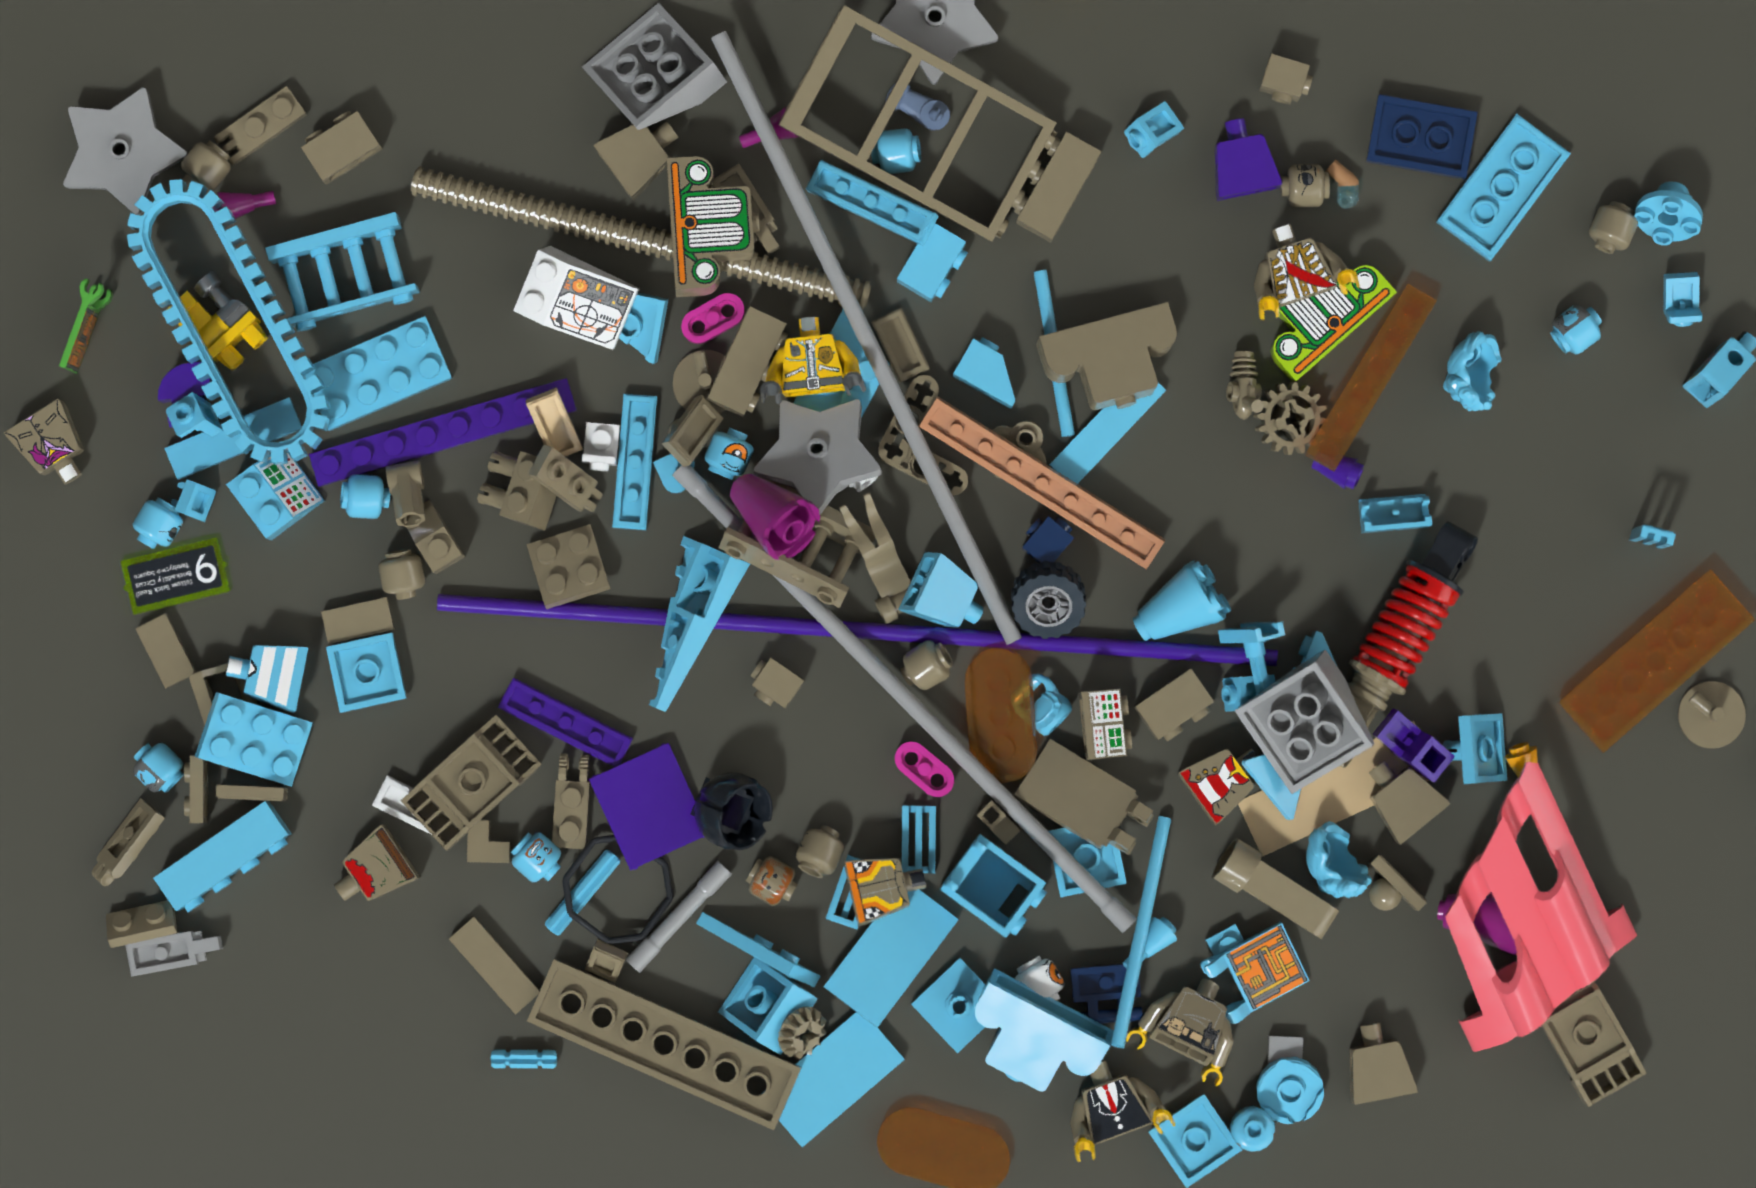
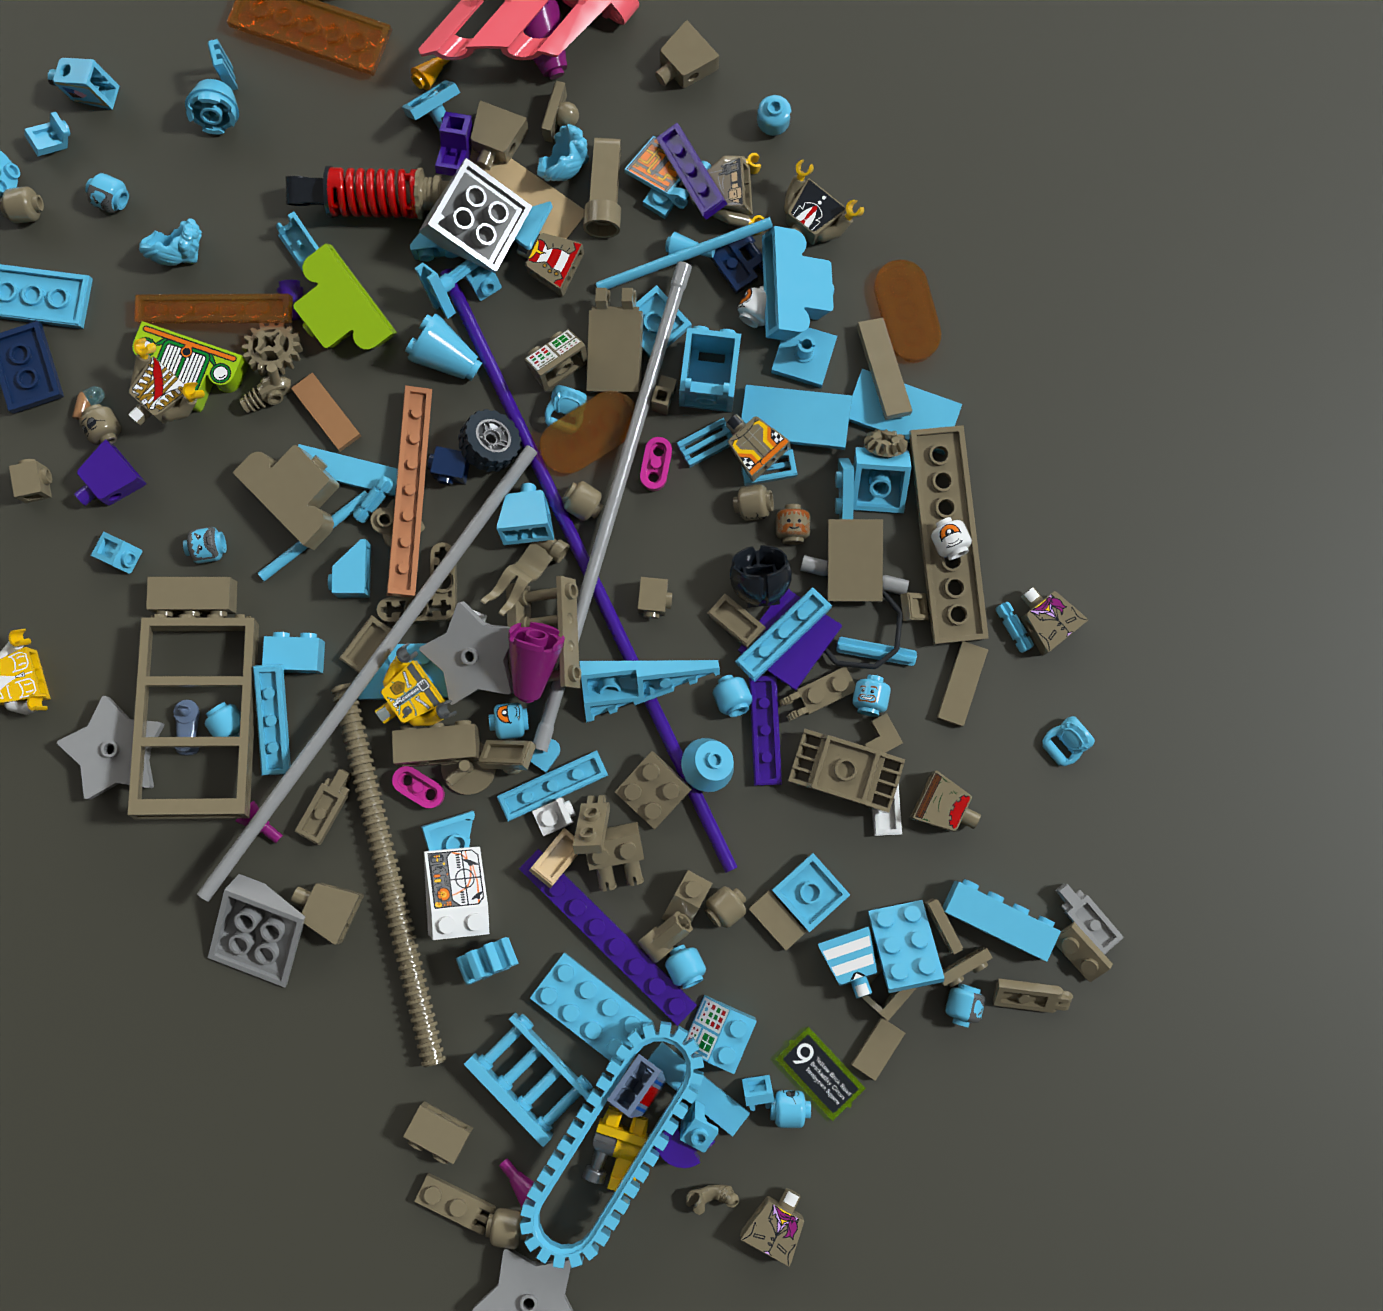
camera: 125 degrees left, 5 degrees down
(84, 324) = (675, 1252): bright green flag -> none
(122, 386) = (701, 1196): none -> dark tan piece
(268, 378) = (638, 1088): none -> sand blue torso
(368, 1052) = (1073, 736): none -> medium azure piece
(487, 293) = (487, 961): none -> medium azure gear
(509, 1100) = (1050, 619): none -> dark tan torso
(562, 639) = (707, 765): none -> medium azure cone
(621, 707) = (732, 696): none -> medium azure head
(654, 1039) = (951, 538): none -> white head
(656, 800) = (783, 634): none -> medium azure tile
(691, 923) = (855, 560): none -> dark tan tile
(700, 758) = (736, 621): none -> dark tan tile
(706, 225) = (349, 828): brick -> none
(889, 1082) = (884, 368): none -> dark tan tile
(1056, 438) = (373, 499): none -> medium azure axle
(1107, 229) = (205, 545): none -> head
(1174, 705) = (515, 319): dark tan brick -> none
(1187, 439) = (326, 412): none -> medium nougat tile
(1196, 1142) = (806, 143): medium azure plate -> none
(1234, 995) = (691, 171): none -> tile
(1284, 1047) = (711, 125): light grey tile -> none
(1290, 1090) = (733, 107): medium azure tile -> none
(1294, 519) = (339, 304): none -> lime brick
(1611, 500) = (212, 106): none -> medium azure cone

